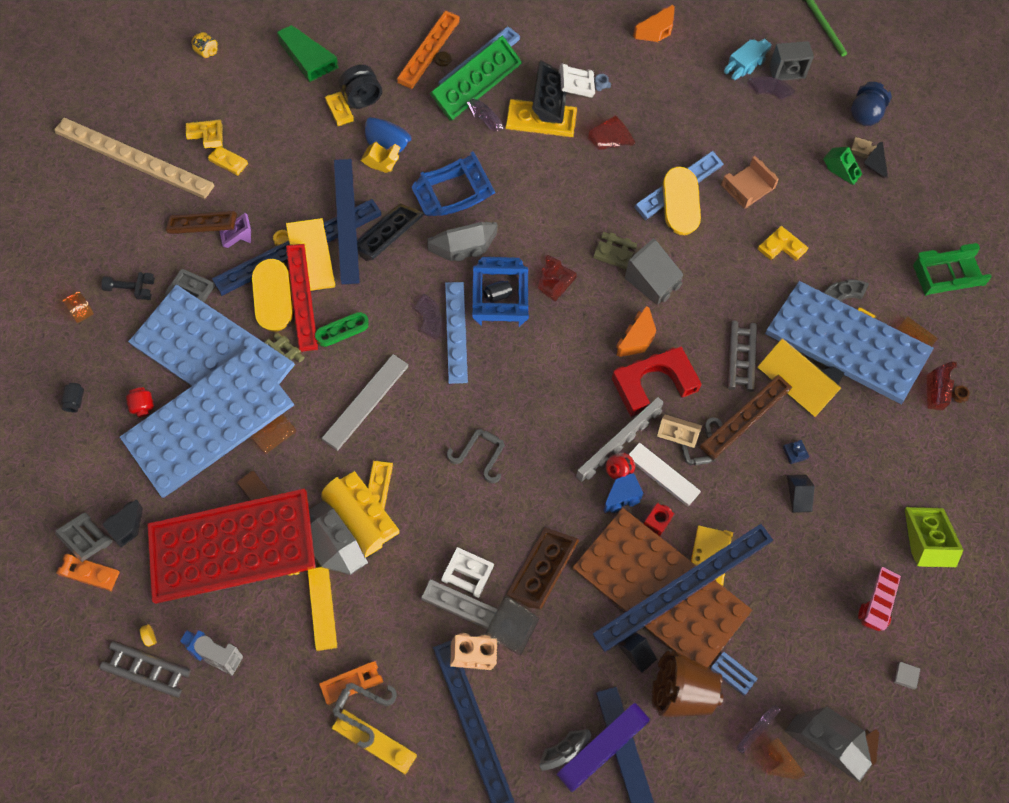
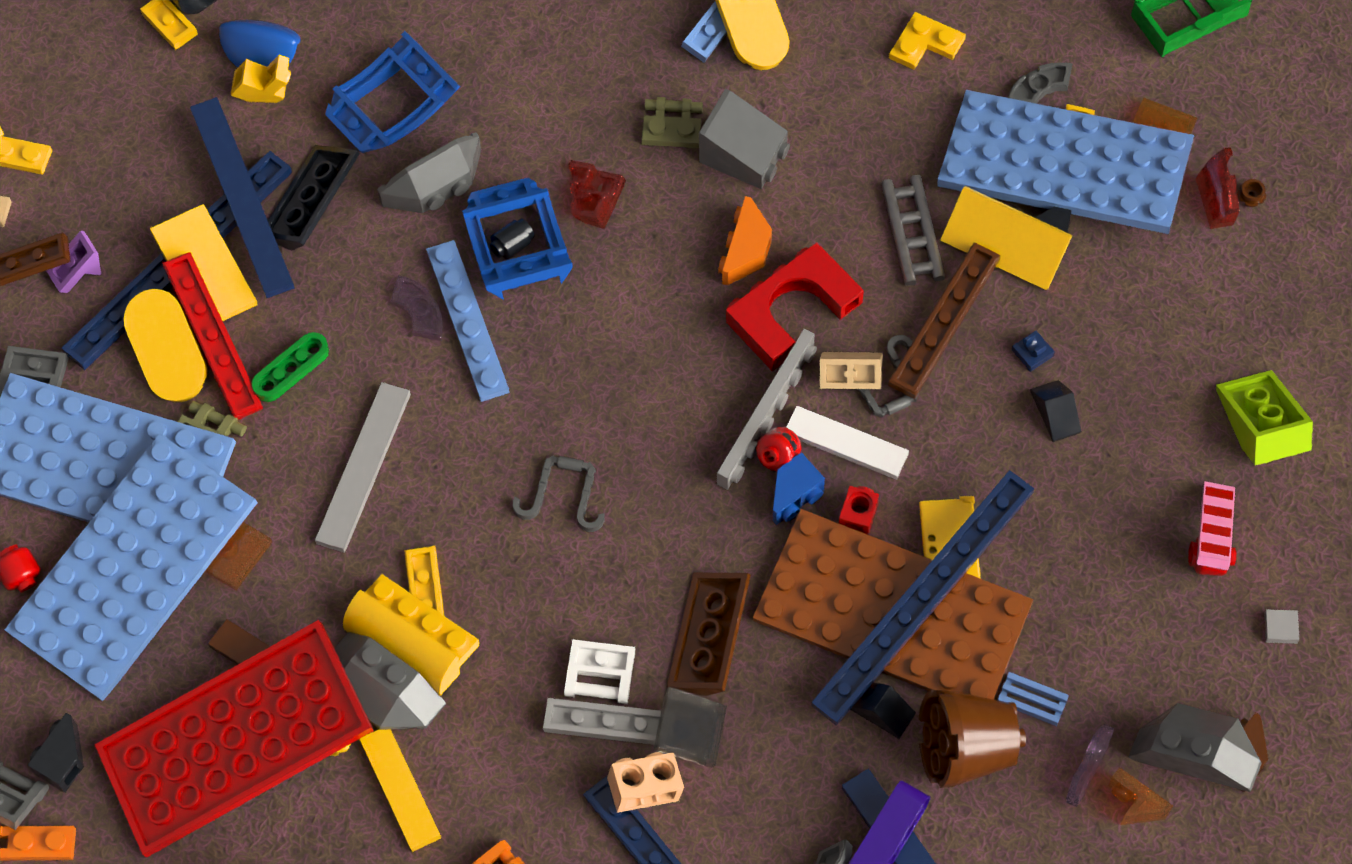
camera: 10 degrees left, 0 degrees up
(280, 237) = (146, 252): yellow tile -> none

